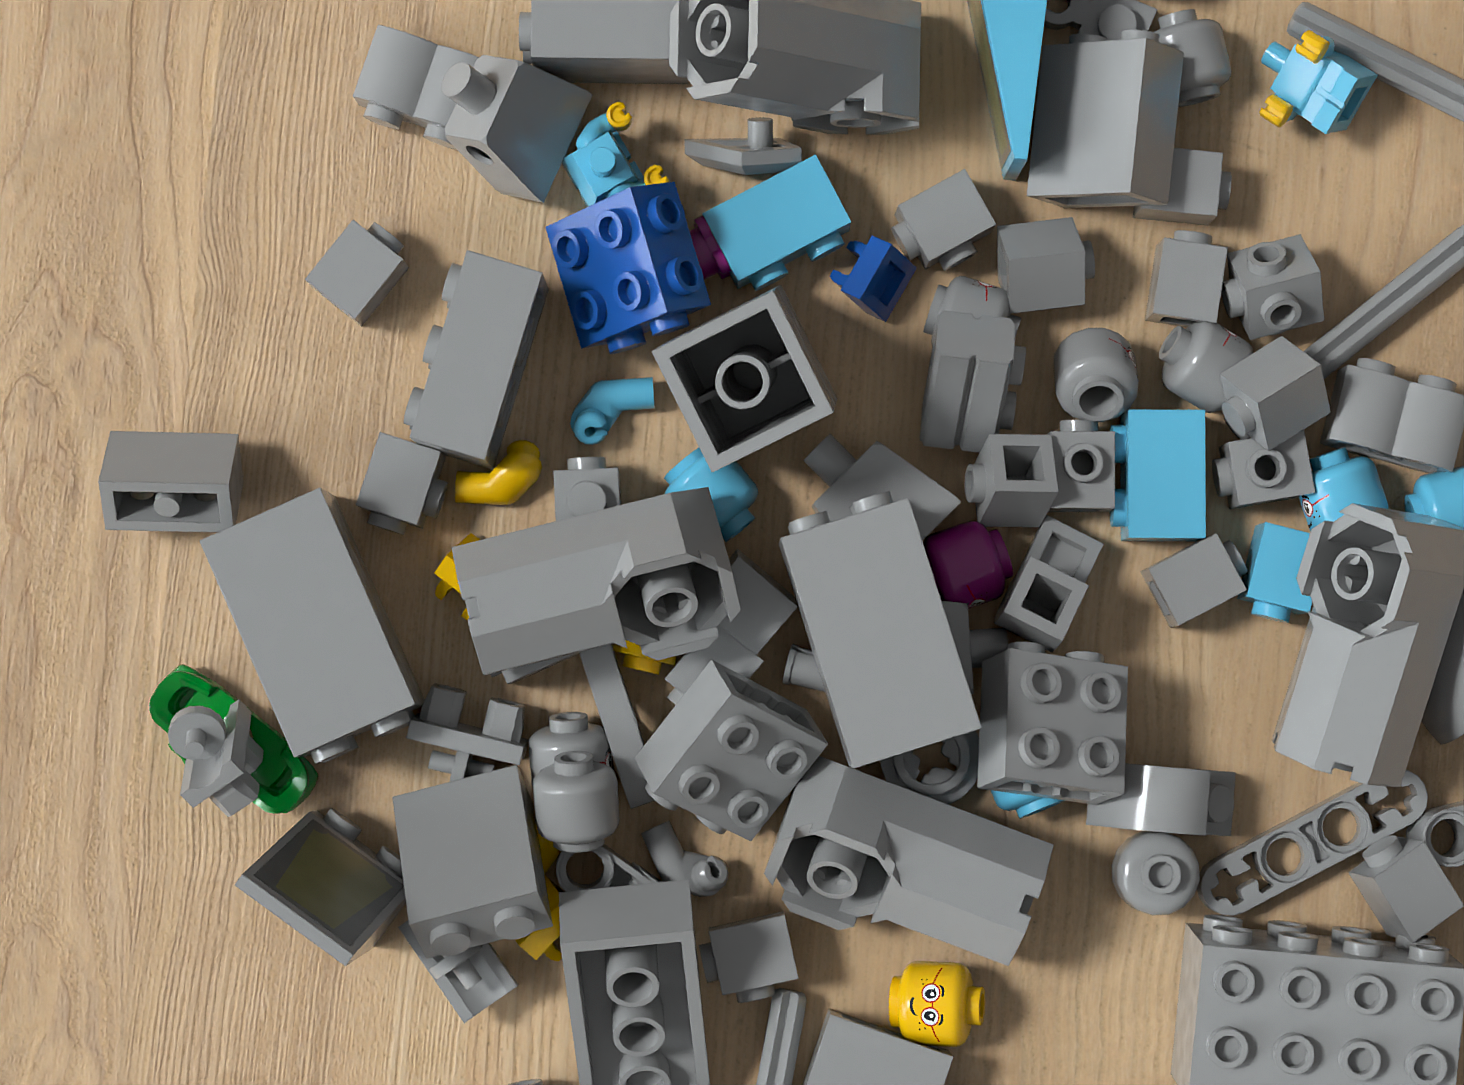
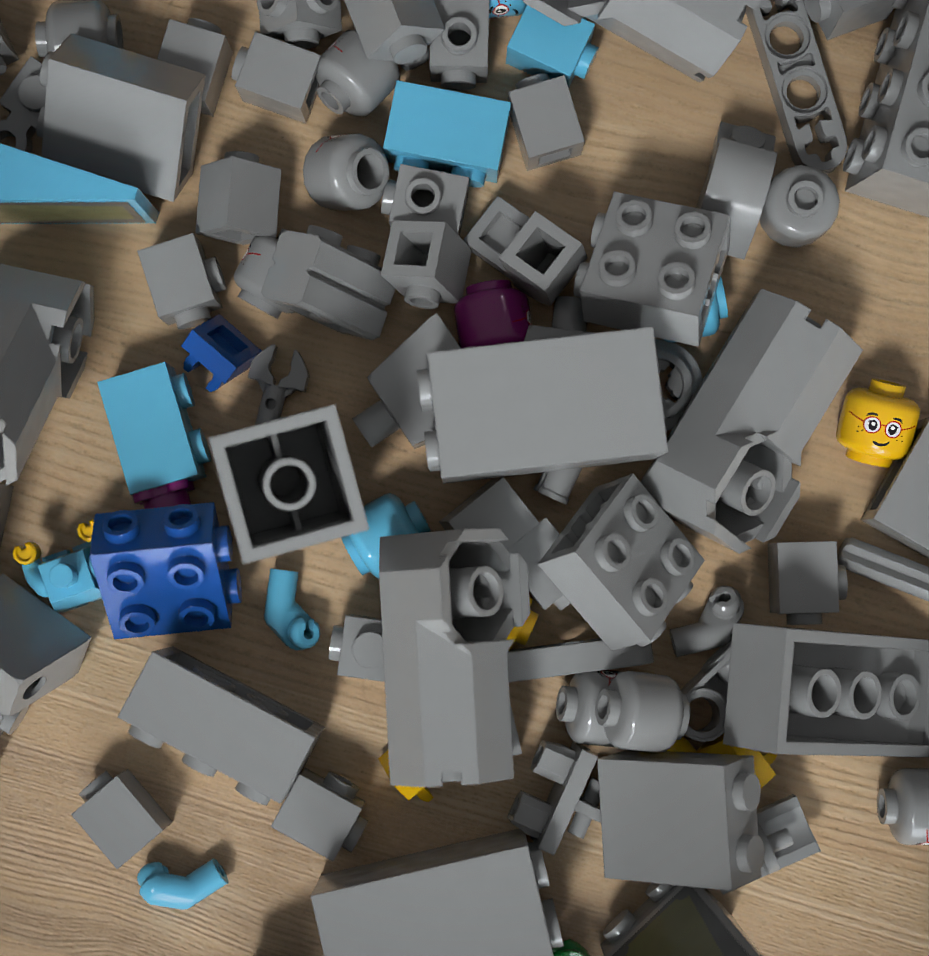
camera: 70 degrees left, 0 degrees up
(290, 347) = (179, 891): none -> medium azure arm
(506, 481) = (338, 718): yellow arm -> none
(746, 156) = (88, 443): light grey piece -> none
(839, 344) = (273, 395): none -> light grey bar

